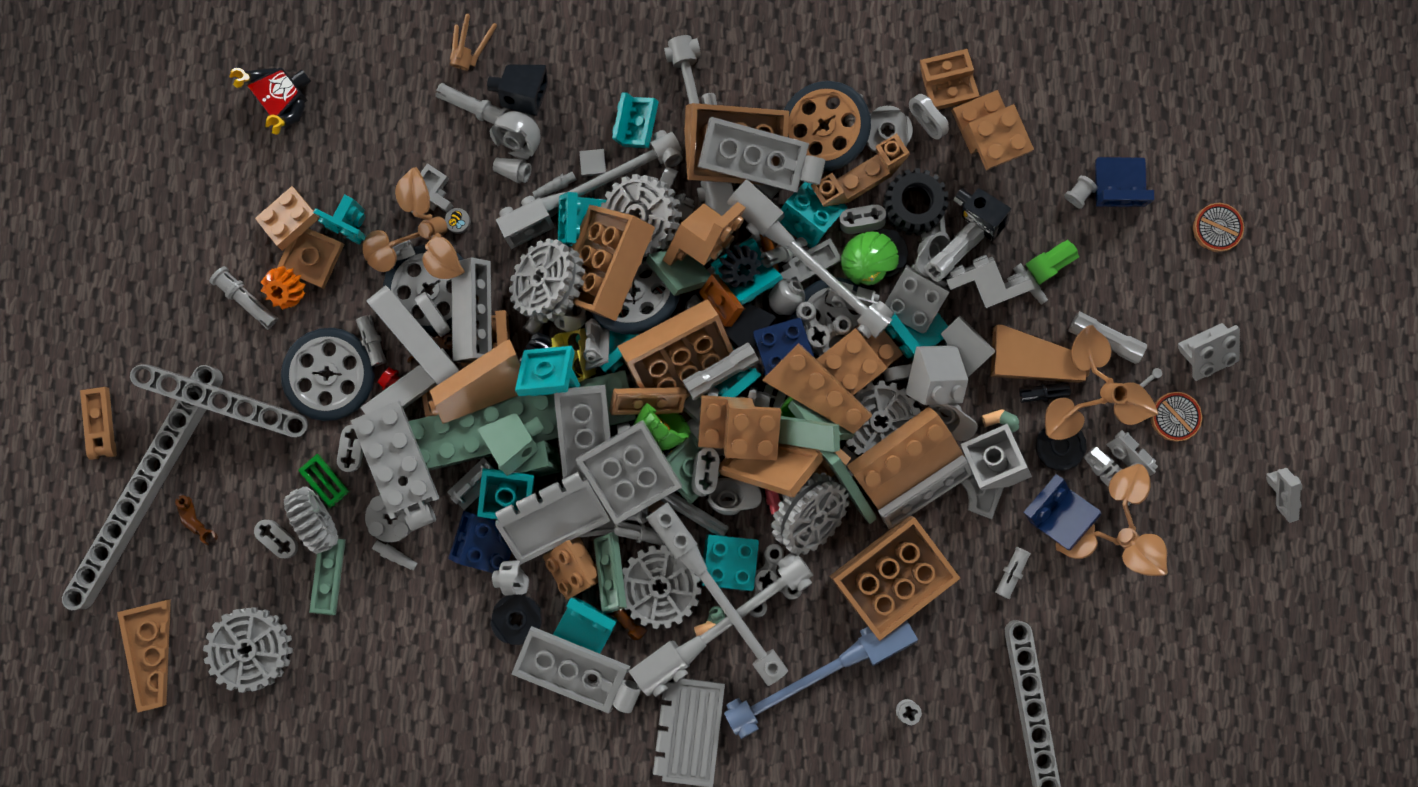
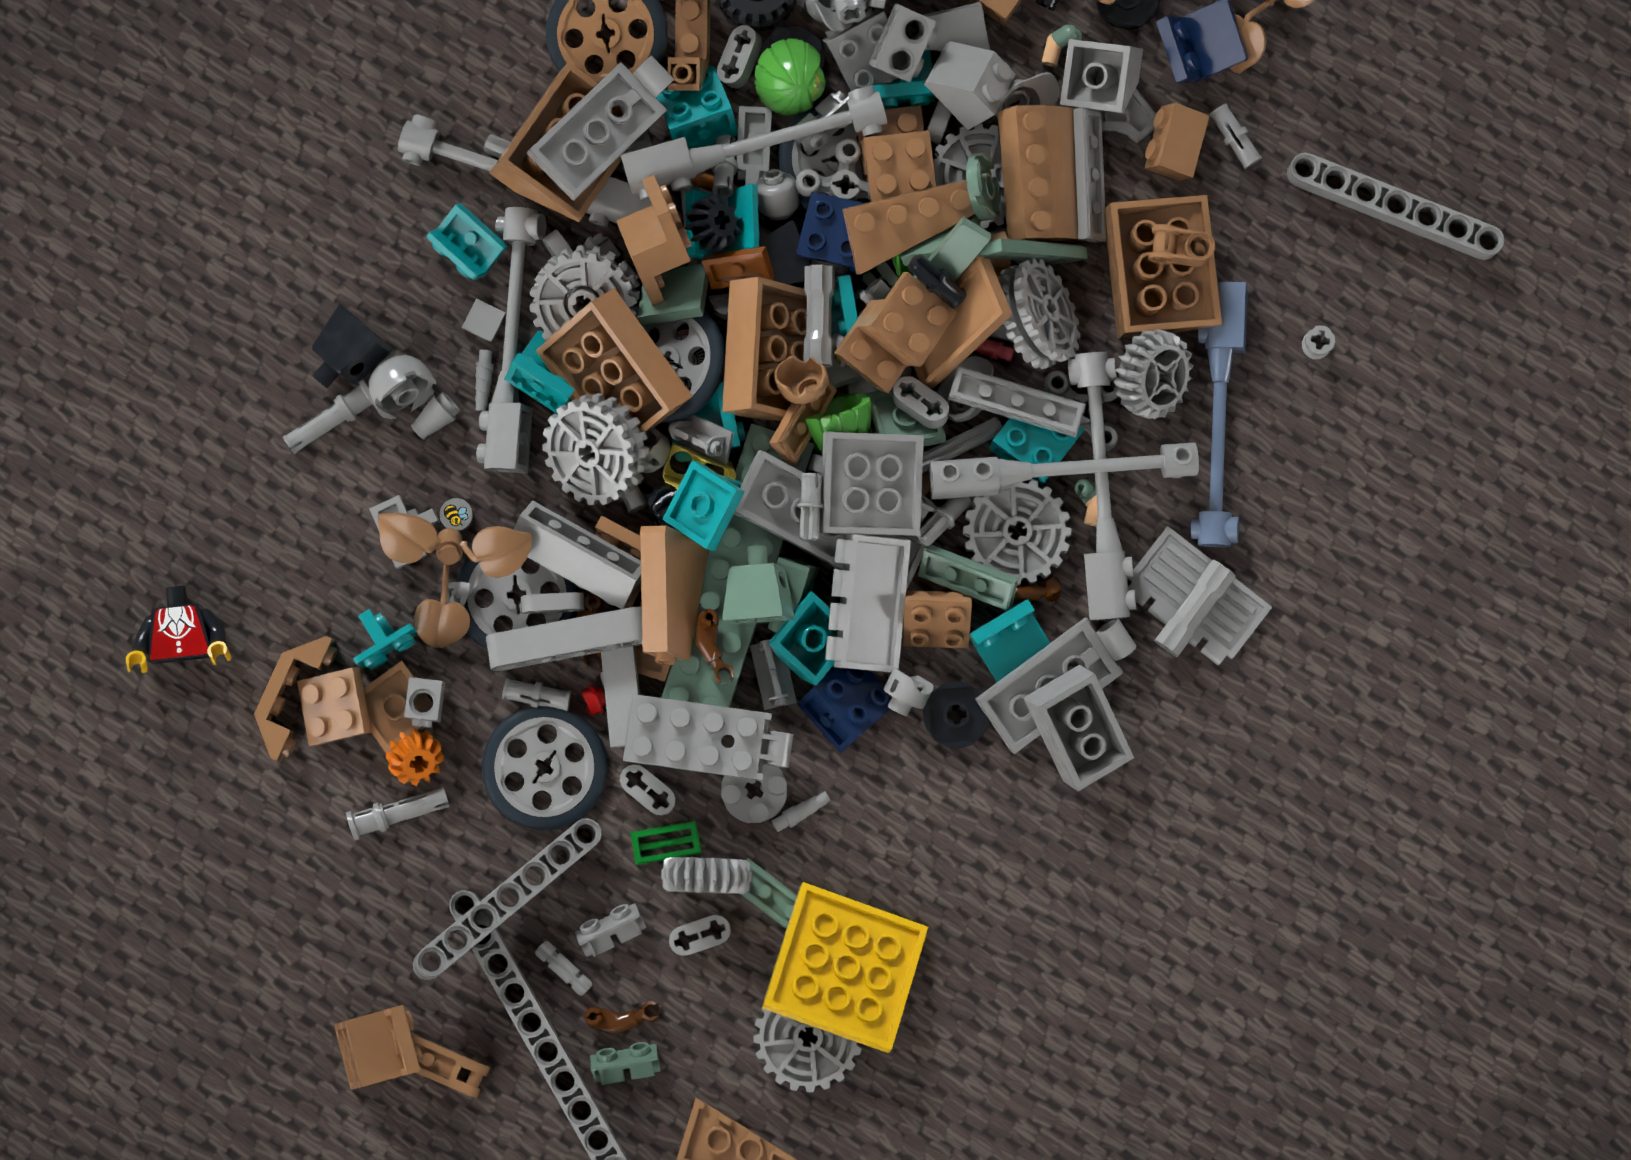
camera: 65 degrees left, 0 degrees up
(78, 377) = (378, 1047): none -> medium nougat bracket
(159, 532) = (639, 1058): none -> sand green hinge
(205, 464) = (563, 968): none -> light grey axle
(237, 472) = (622, 921): none -> light grey hinge
(248, 190) = (315, 654): none -> medium nougat slope
(302, 647) = (845, 967): none -> yellow plate
(330, 275) = (419, 687): none -> light grey brick
(461, 55) = (264, 394): medium nougat plant -> none
(461, 427) = (706, 643): none -> reddish brown arm
(551, 707) = (1078, 727): none -> light grey brick
(588, 441) = (810, 506): none -> light grey axle
(668, 384) = (801, 380): none -> medium nougat hair
(676, 736) = (1194, 609): none -> light grey axle
(743, 535) = (1017, 401): none -> light grey tile
(787, 433) = (937, 280): none -> black axle
(818, 615) = (1153, 374): none -> light grey gear
(871, 426) = (982, 187): none -> sand green tile
(913, 580) = (1177, 246): none -> medium nougat piece
(934, 311) = (894, 39): none -> light grey brick
(984, 536) = (1176, 141): none -> medium nougat brick

